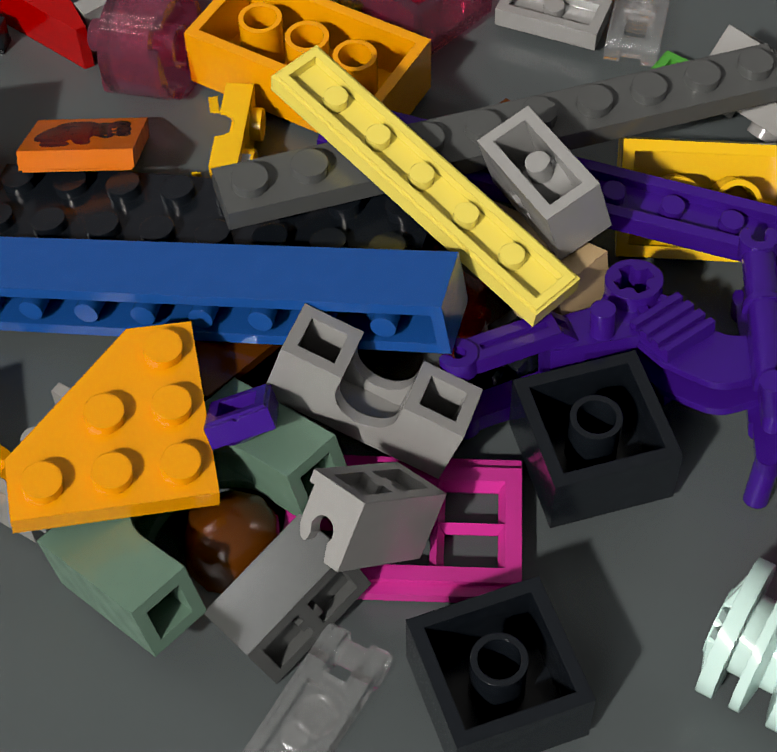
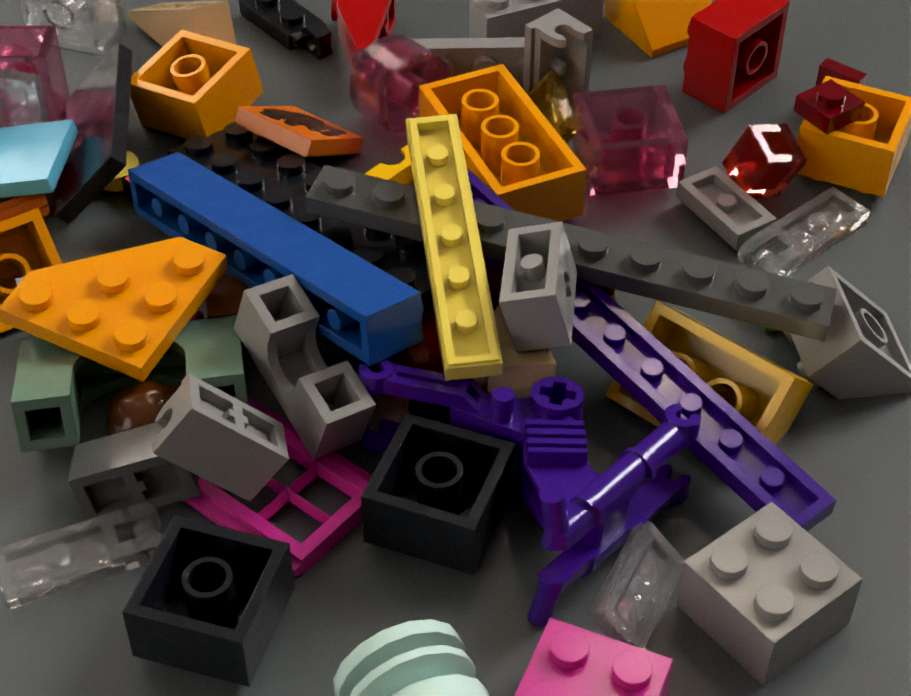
camera: 35 degrees right, 10 degrees down
(241, 416) = (197, 330): dark purple tile -> none

